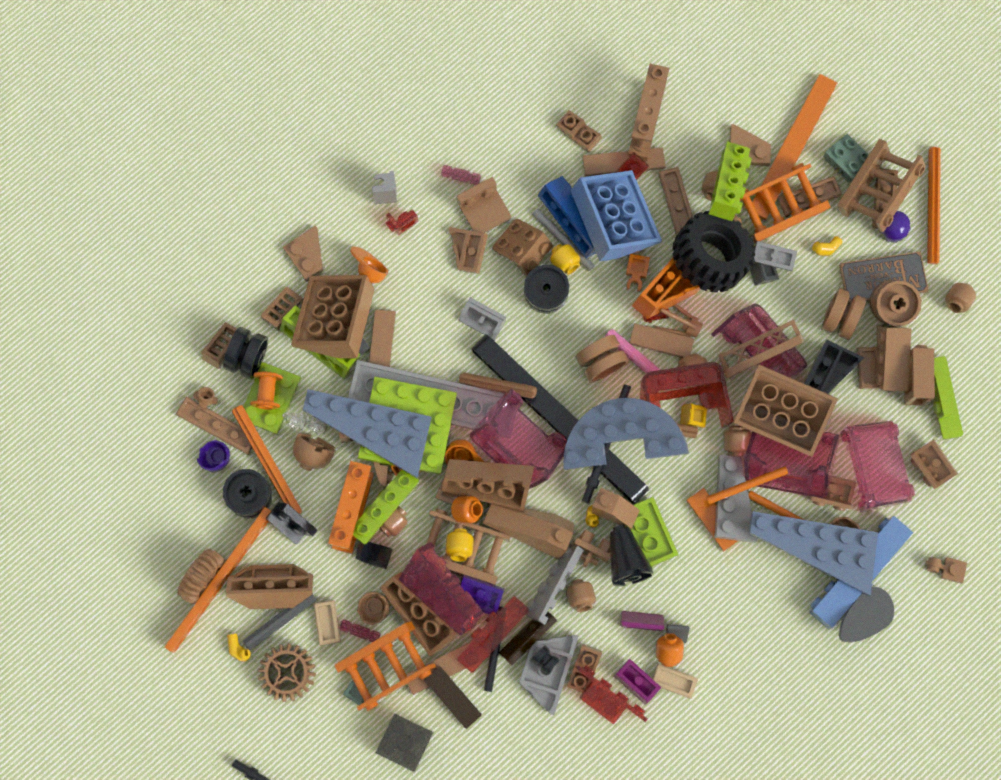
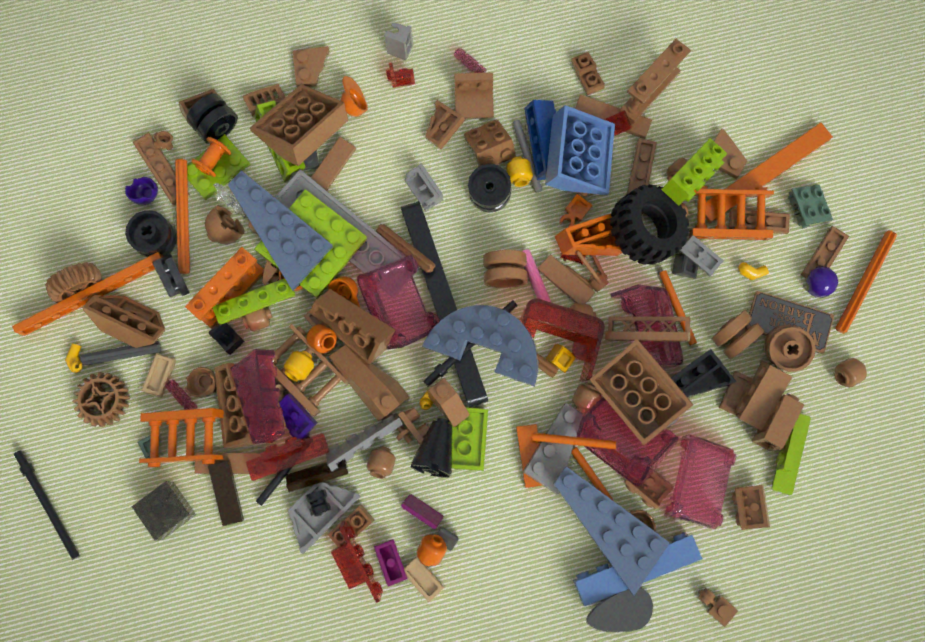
camera: 30 degrees right, 0 degrees up
(772, 311) = (676, 303): none -> orange bar
(870, 170) = (826, 223): medium nougat fence -> none

